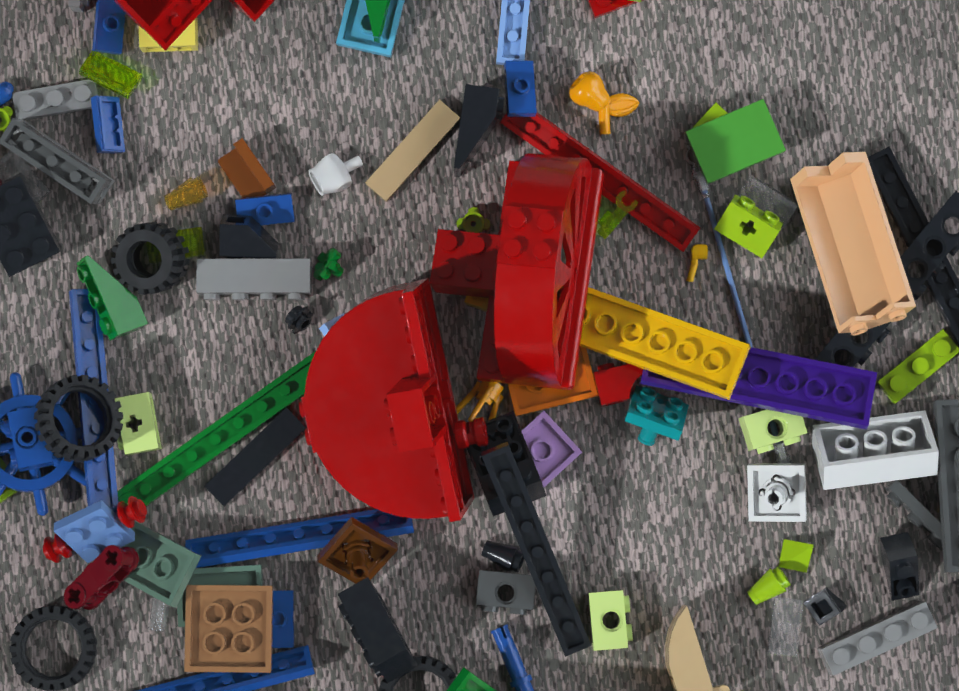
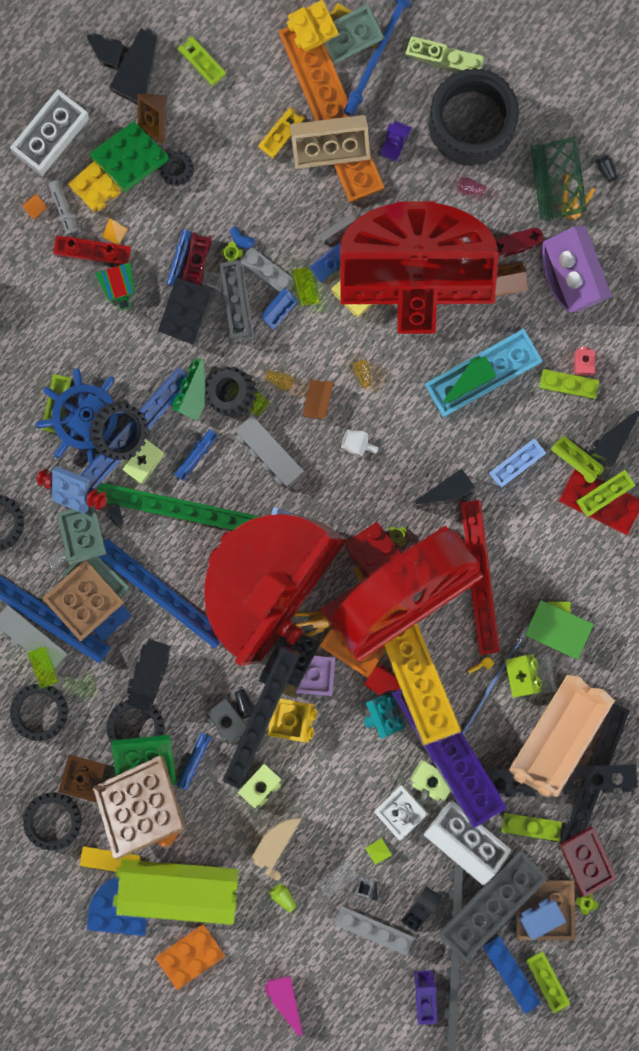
camera: 45 degrees right, 0 degrees up
(101, 577) = (51, 514): dark red piece -> none
(168, 509) = (115, 516): none -> black slope
(183, 356) = (197, 453): none -> blue pin
(245, 237) = (284, 429): black slope -> none
(255, 457) = (180, 535): black tile -> none
(262, 98) = (362, 372): none -> clear yellow cone
(268, 208) = (308, 426): blue plate -> none
(298, 319) = (268, 493): black plate -> none
(328, 265) = (309, 483): green plant -> none
(357, 551) = (174, 630): reddish brown plate -> none
(413, 150) = (406, 472): tan tile -> none
(520, 89) = (486, 497): blue plate -> none
(571, 518) = (293, 721): none -> yellow plate
(591, 93) = (517, 534): light orange piece -> none
(611, 220) = (462, 604): clear neon green plate -> none
(769, 585) = (352, 852): lime cone -> none

